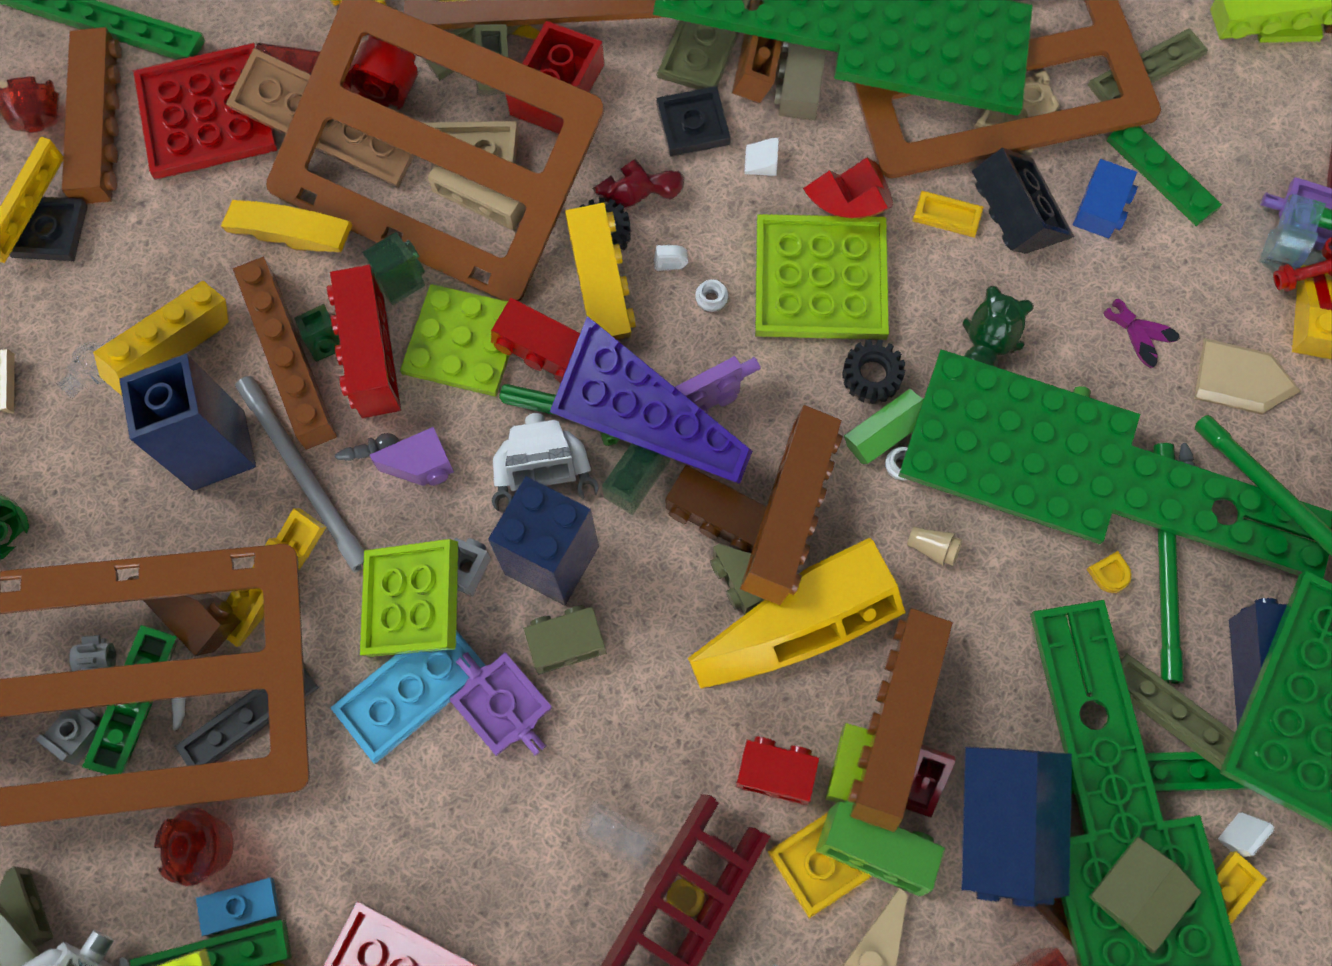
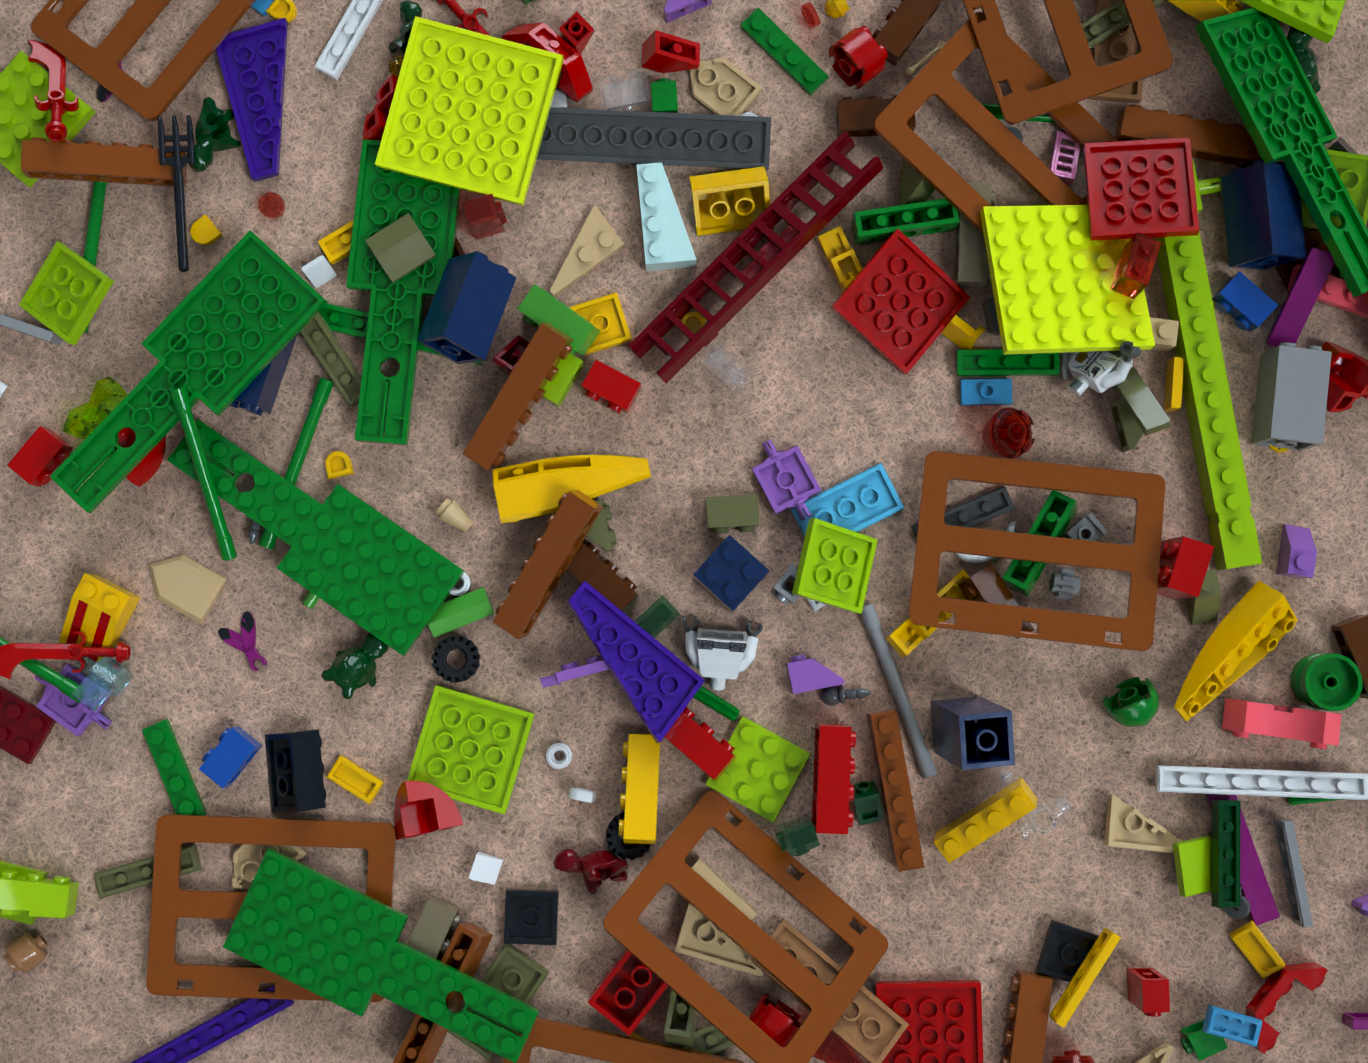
camera: 165 degrees left, 15 degrees up
(288, 225) = (877, 903): yellow slope -> none

